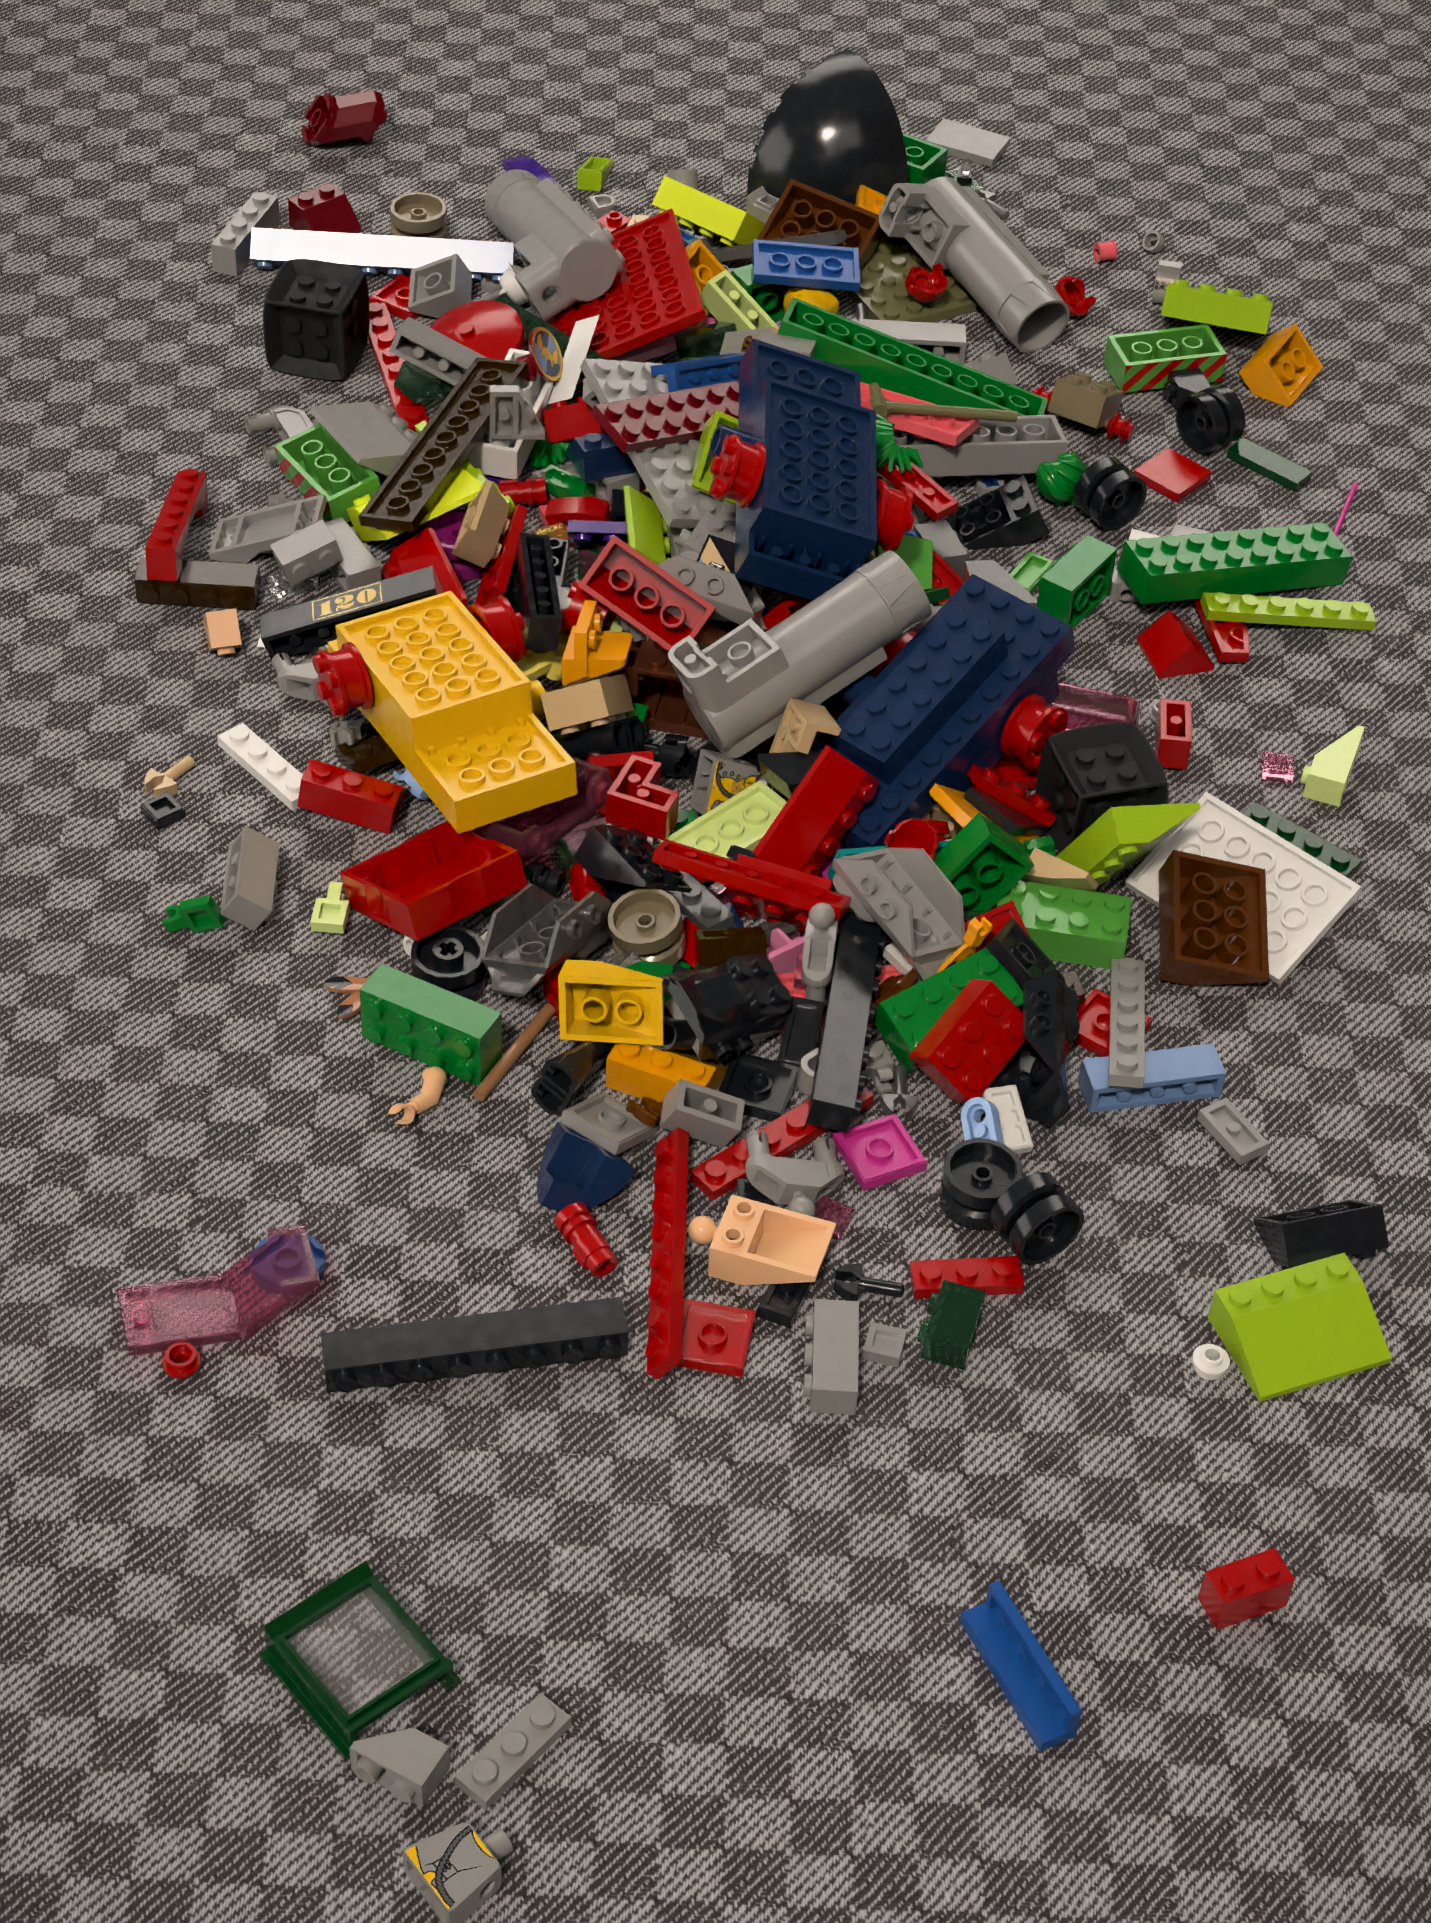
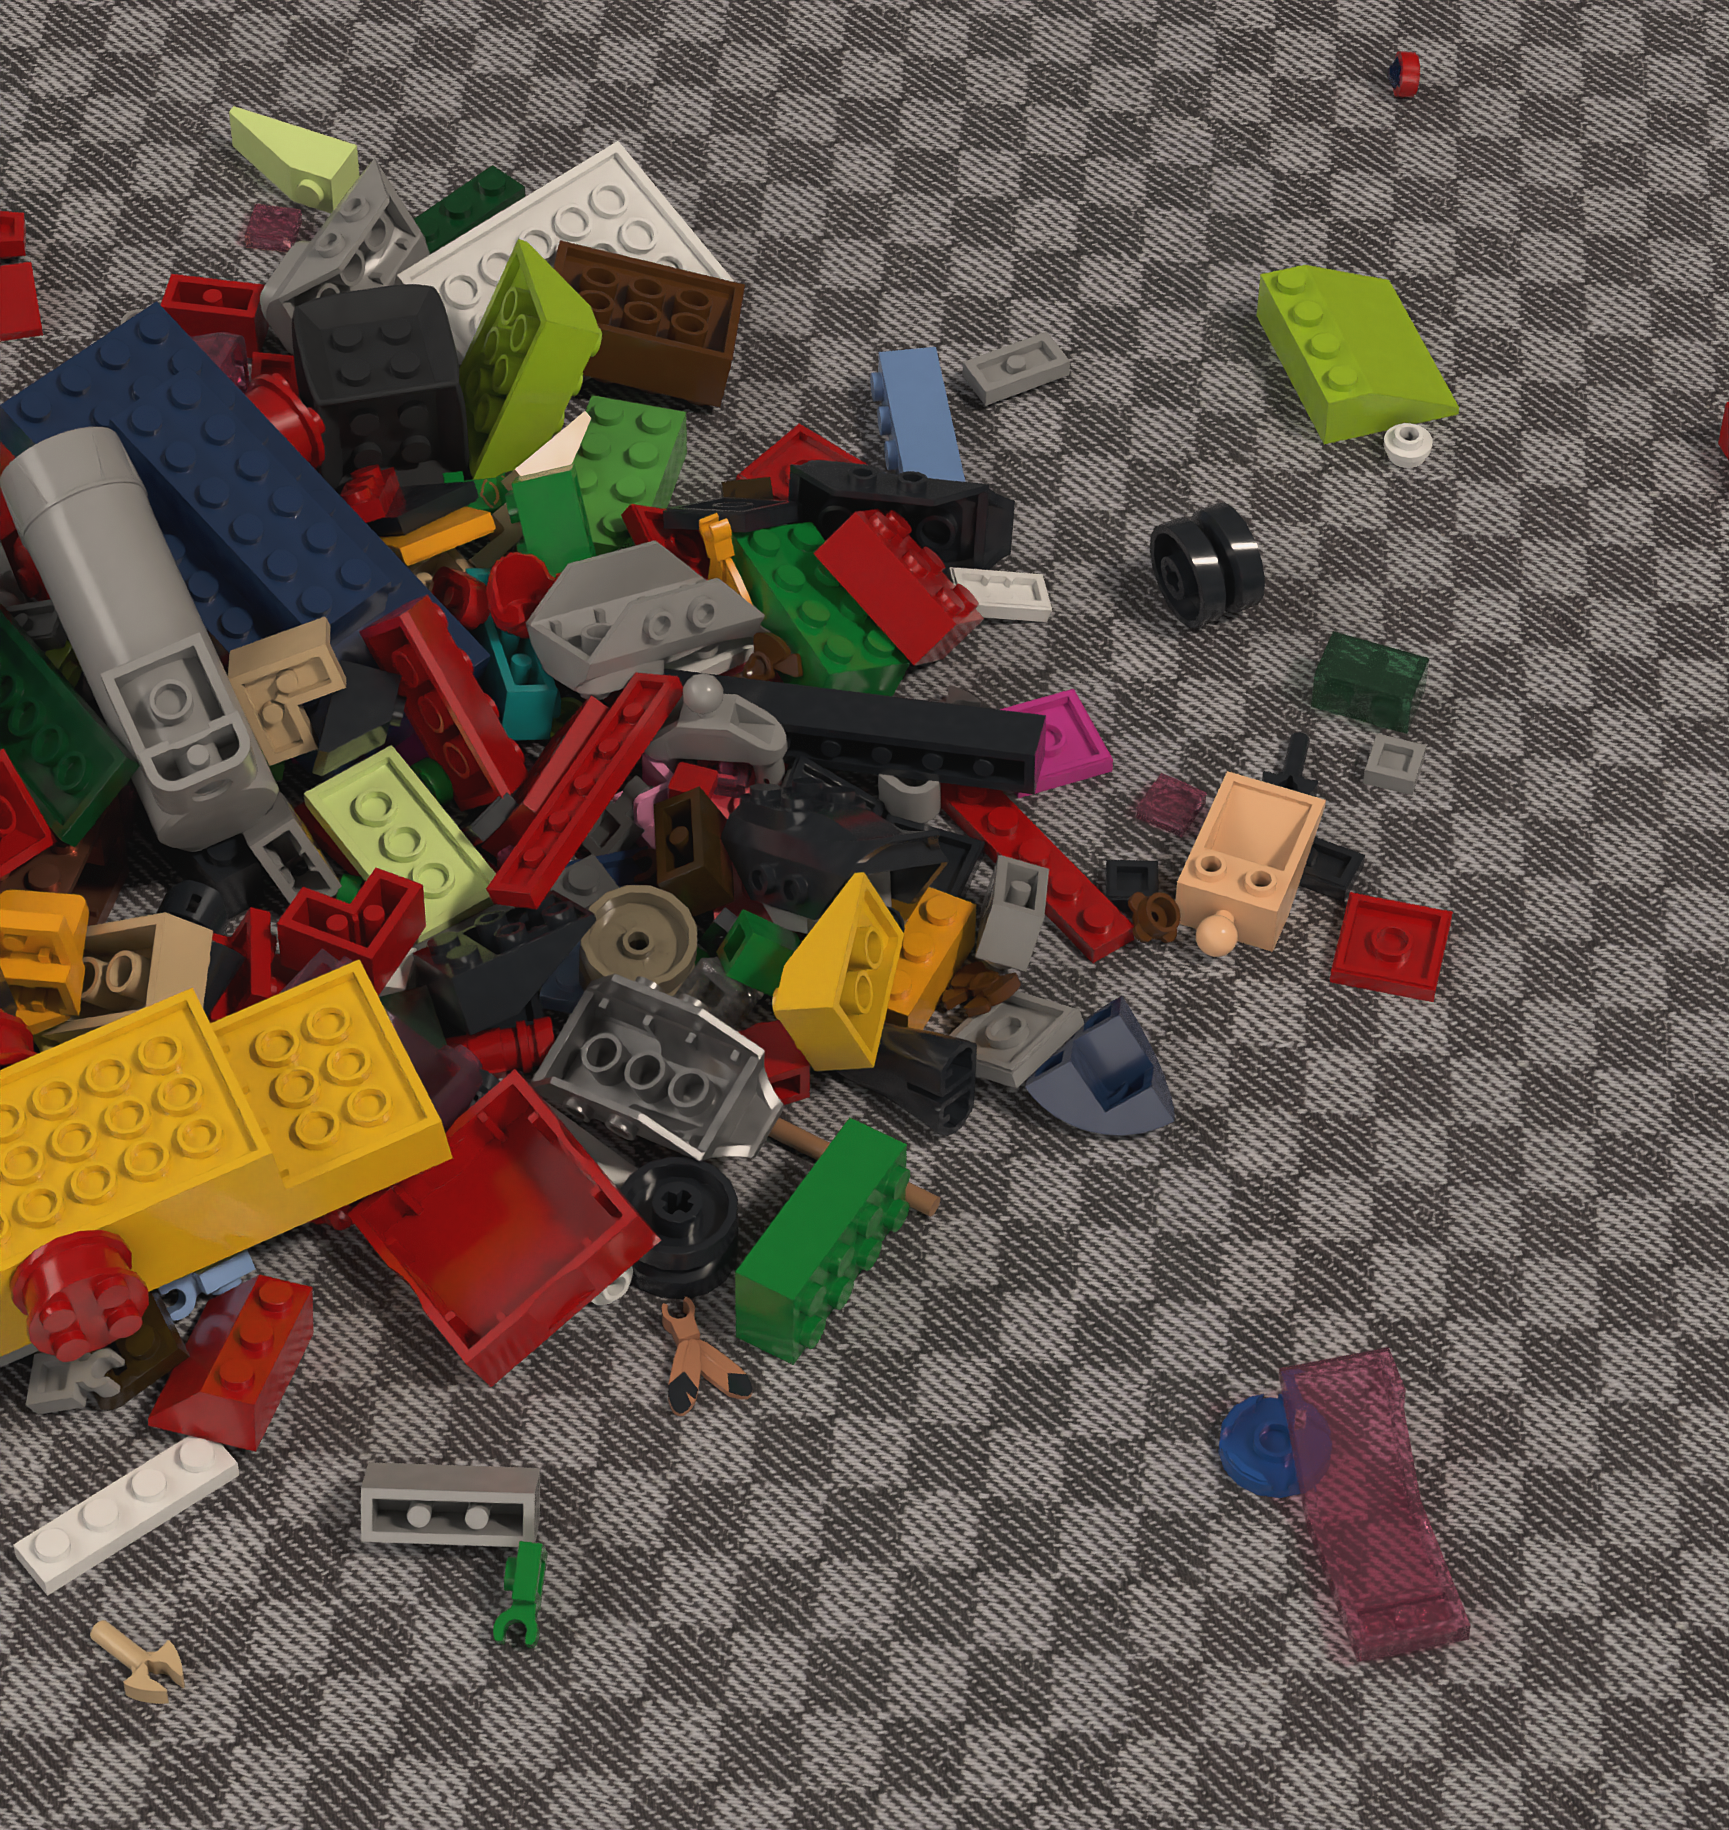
camera: 85 degrees left, 5 degrees up
(163, 810) = (229, 1666): black tile -> none
(179, 1353) = (1480, 1557): red plate -> none
(332, 912) = (524, 1400): yellowish green plate -> none
(430, 1094) = (948, 1272): light nougat arm -> none
(474, 1344) = (1436, 1210): black brick -> none
(588, 1243) = (1239, 1070): red axle -> none
(668, 1254) = (1251, 978): red plate -> none
(712, 1196) = (1154, 917): none -> reddish brown plate
(786, 949) = (691, 776): none -> red piece
(793, 1180) = (1124, 822): light grey connector -> none
(832, 1356) = (1431, 809): light grey brick -> none
(972, 1125) = (1028, 615): light blue plate -> none
(975, 1178) = (1133, 623): black wheel -> none
(989, 1274) = (1274, 671): red plate -> none
(1127, 1023) = (833, 436): light grey plate -> none
(1244, 777) = (356, 249): none -> light grey slope
(1323, 1232) = (1195, 305): black slope -> none

